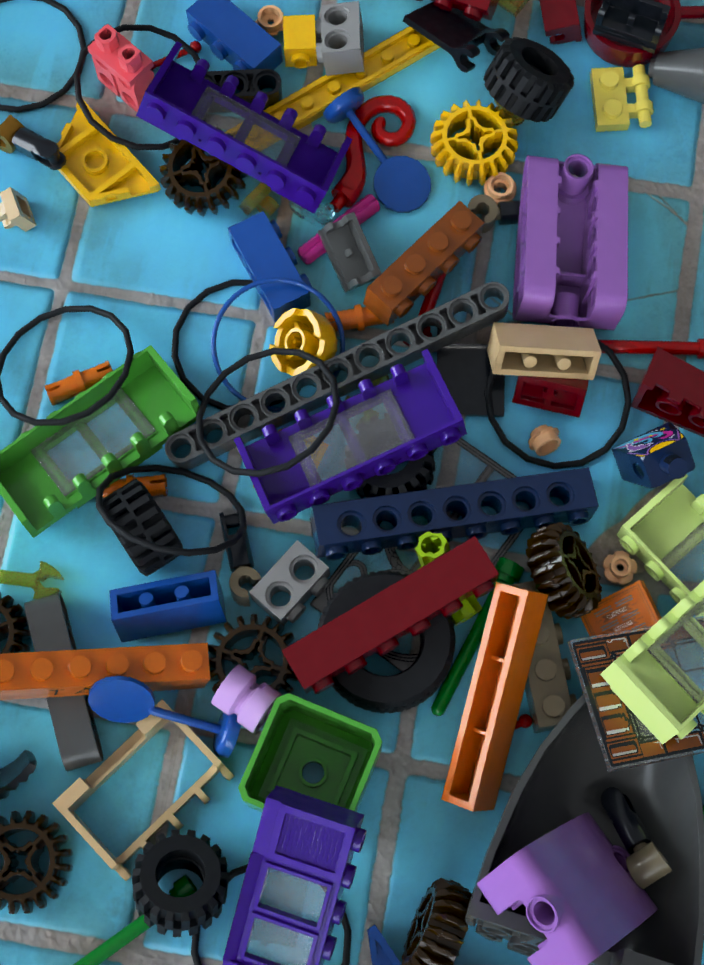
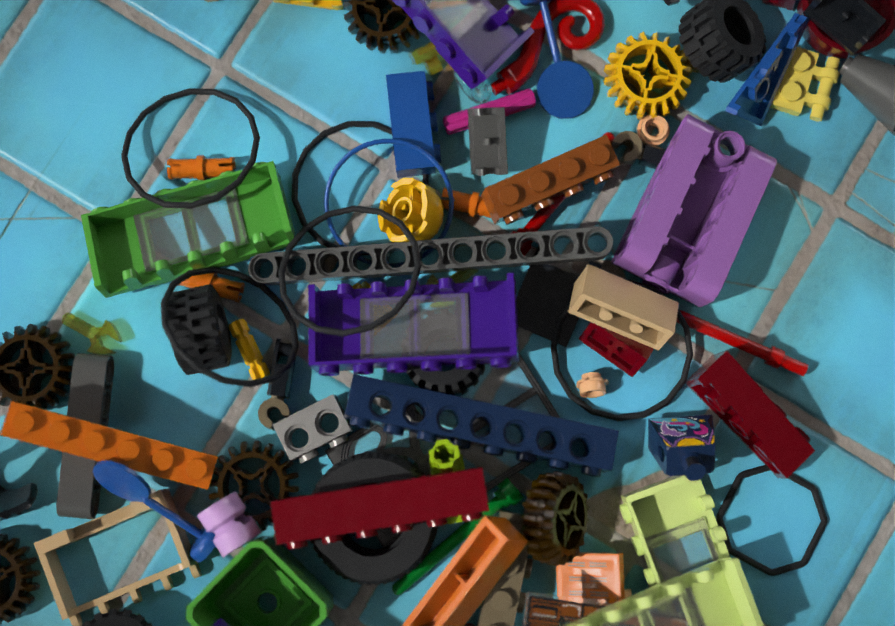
camera: 20 degrees right, 10 degrees up
(167, 606) = (197, 407): blue brick -> none
(193, 533) = (249, 349): none -> yellow axle
(583, 109) = (760, 88): none -> blue wing
(611, 572) = (600, 528): light nougat plate -> none

